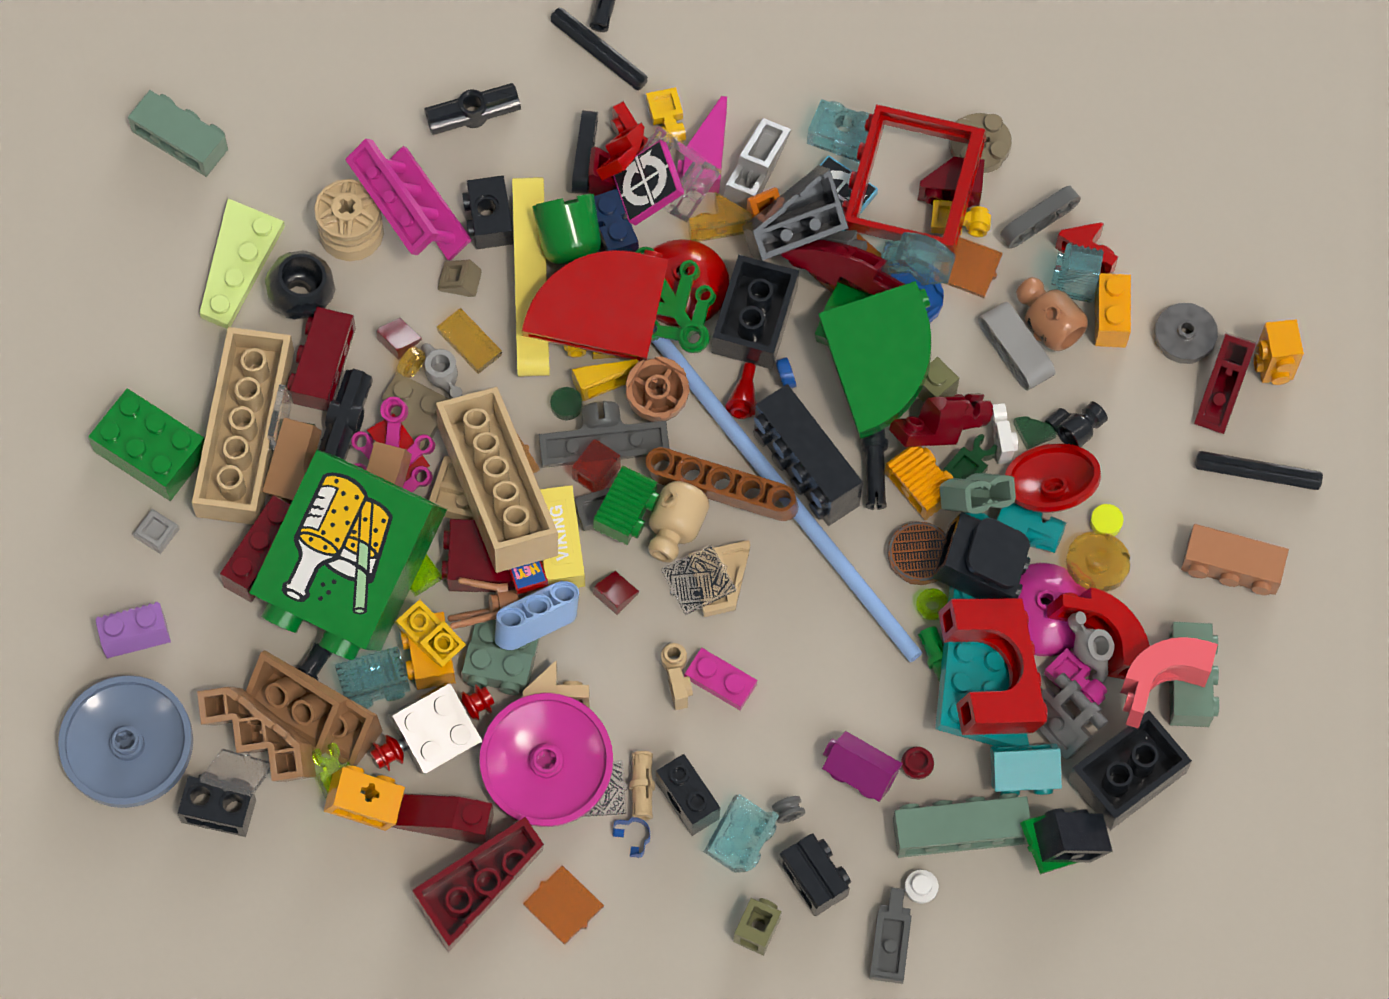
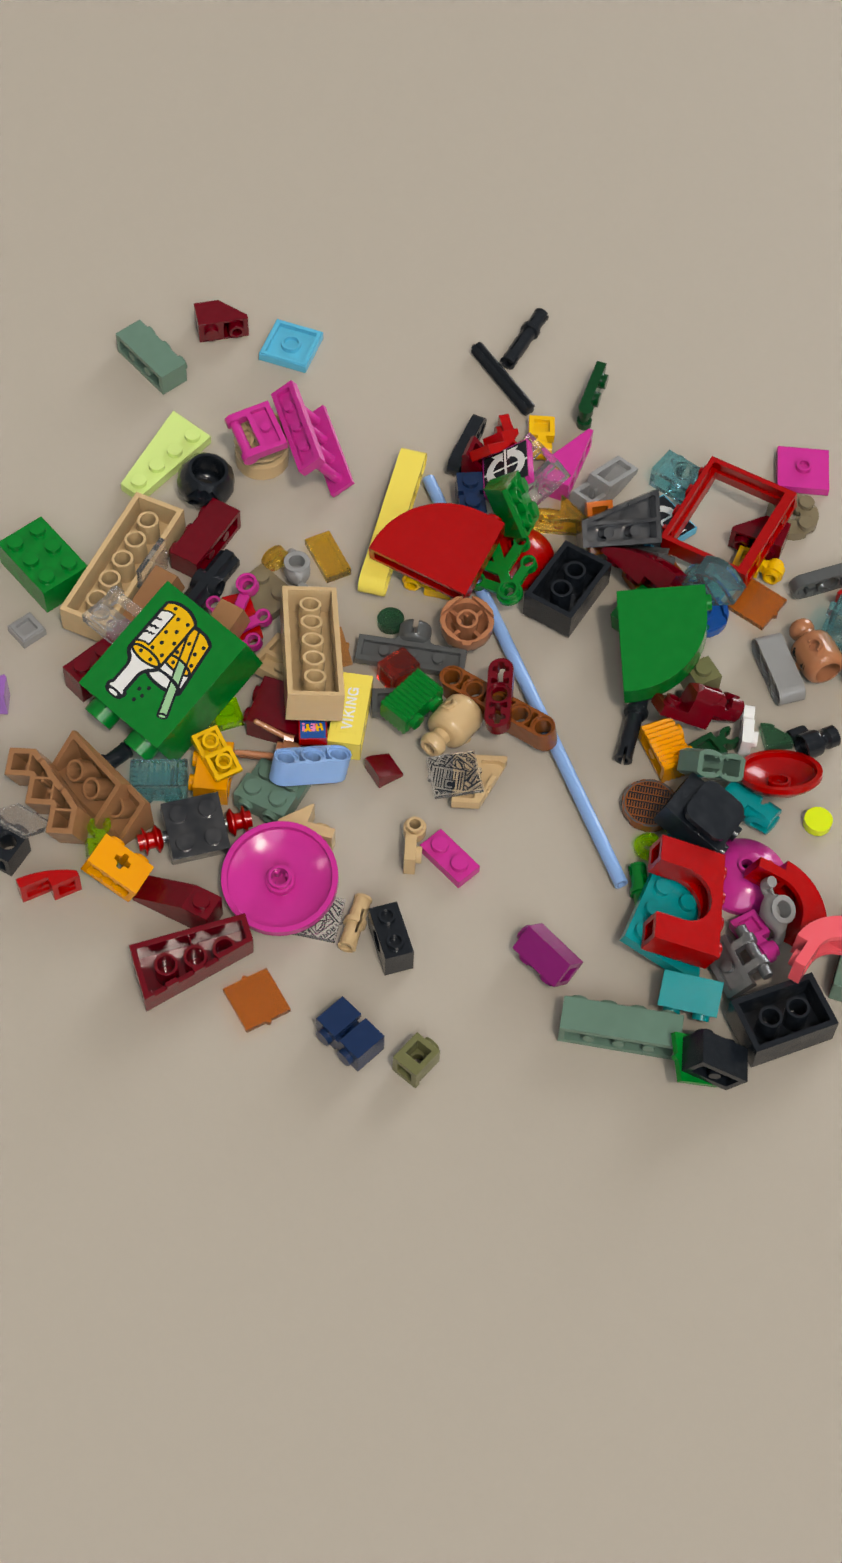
camera: 15 degrees right, 10 degrees down
(242, 62) = (219, 321): none -> dark red slope
(257, 505) = (106, 619): none -> clear plate
(302, 833) = (57, 882): none -> red slope
(336, 70) = (291, 346): none -> medium azure tile
(355, 211) = (264, 428): none -> dark pink plate
(397, 337) = (270, 536): slope -> none
(460, 278) = (336, 510): dark tan slope -> none
(490, 102) = (387, 394): black piece -> none
(491, 195) = (375, 468): black brick -> none
(568, 228) = (432, 482): green cylinder -> none
(601, 378) = (423, 606): yellow slope -> none
(620, 833) = (332, 974): blue piece -> none
(662, 910) = (355, 1041): none -> dark blue piece
(667, 228) = (513, 504): none -> green slope
(711, 49) = (592, 396): none -> dark green plate
(726, 451) = (503, 706): none -> dark red beam
(741, 835) = (425, 982): clear light blue bracket -> none
(743, 400) = (535, 653): red cone -> none
(785, 372) = (578, 641): blue tile -> none
(788, 809) = (473, 973): dark grey bush -> none
(807, 455) = (576, 703): black brick -> none
(815, 874) = (479, 1031): black brick -> none
(891, 940) = (529, 1103): dark grey hinge -> none
(917, 763) = (597, 967): dark red plate -> none
(921, 886) = (570, 1067): white plate -> none
(977, 79) = (803, 470): none -> dark pink plate
(1104, 550) = (801, 847): clear yellow plate -> none

